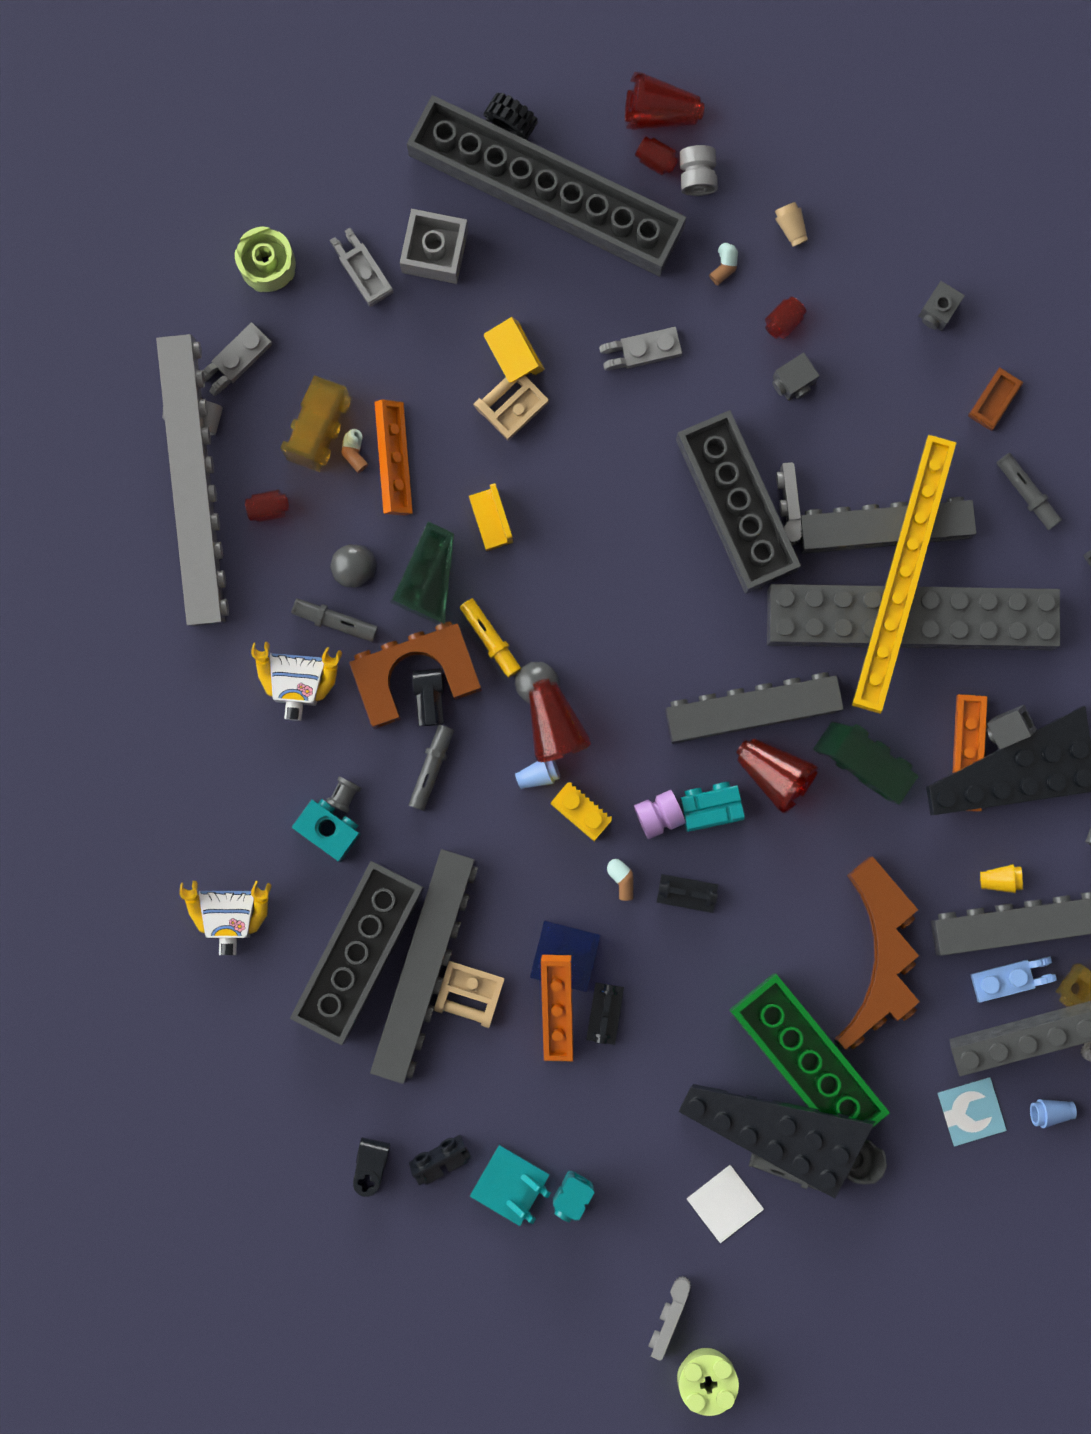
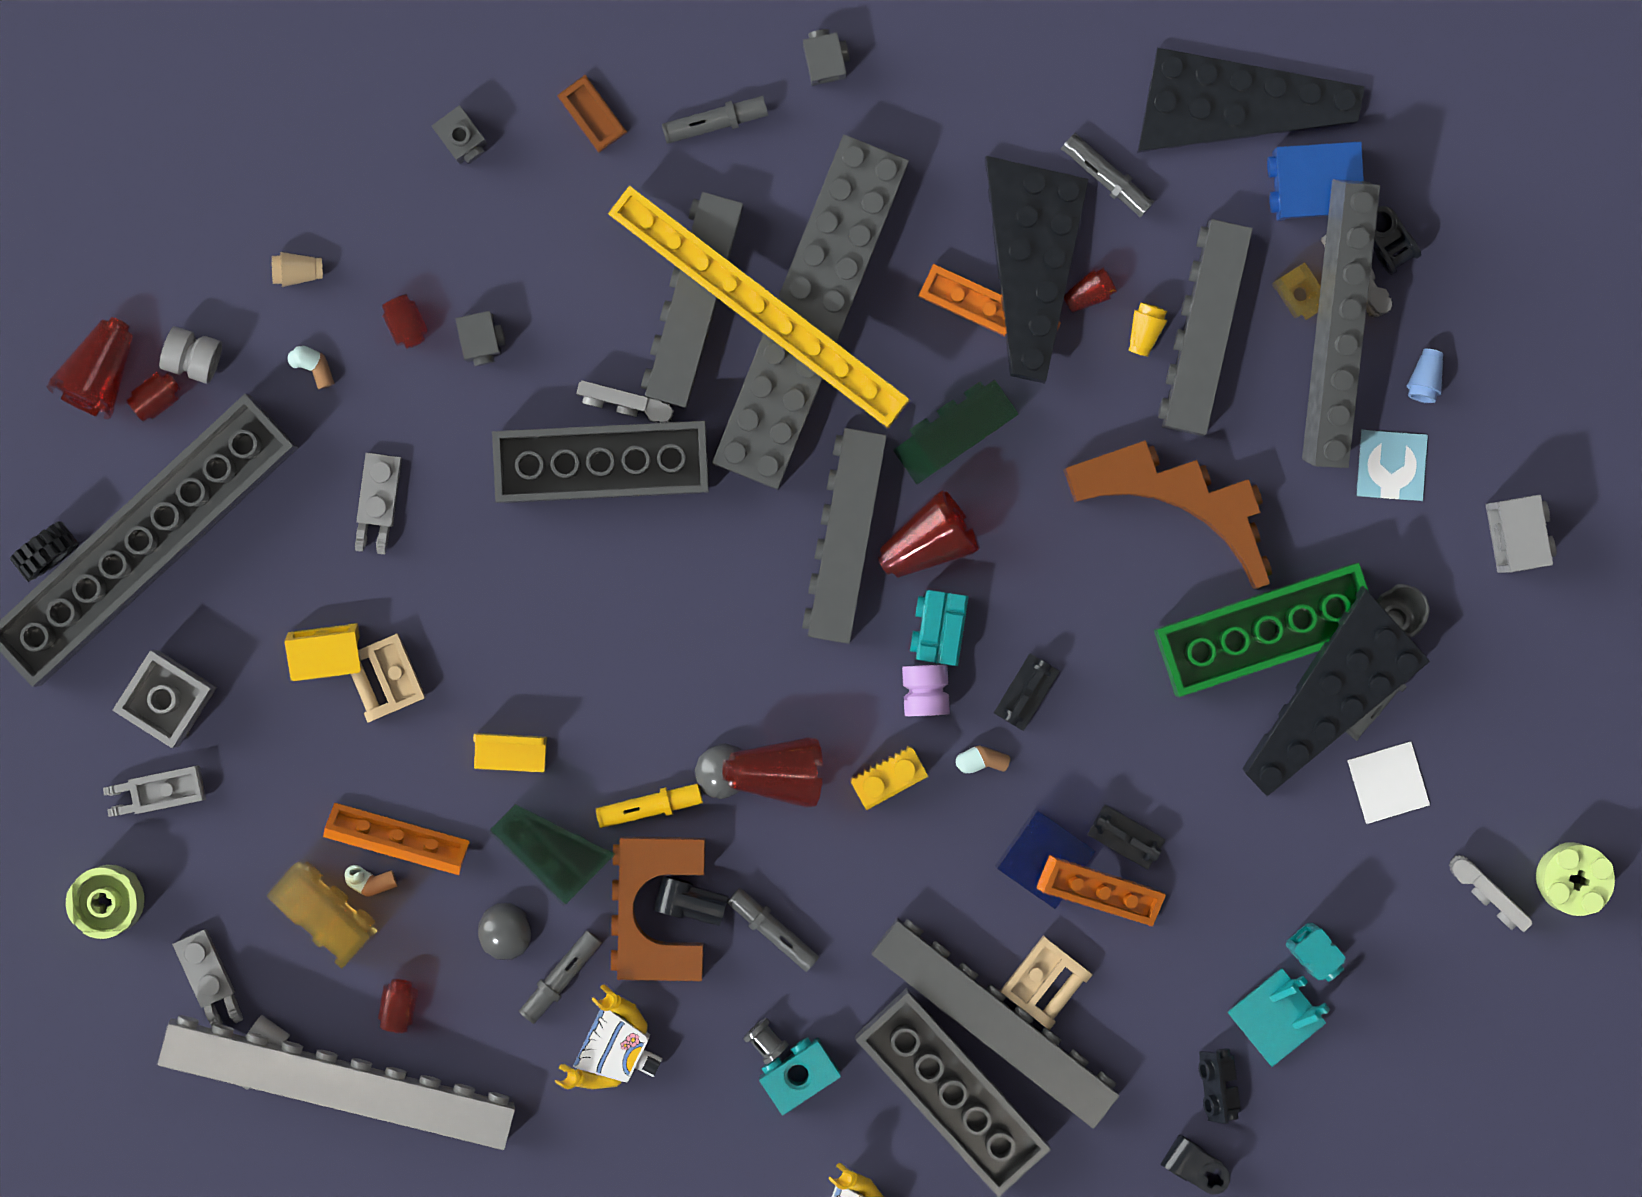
camera: 75 degrees left, 5 degrees up
(538, 774) = (828, 811): light blue cone -> none
(962, 1232) = (1520, 534): none -> light grey brick
(1009, 979) = (1261, 364): light blue hinge -> none
(1011, 727) = (979, 251): dark grey brick -> none
(1014, 825) = (1091, 290): none -> clear red cone

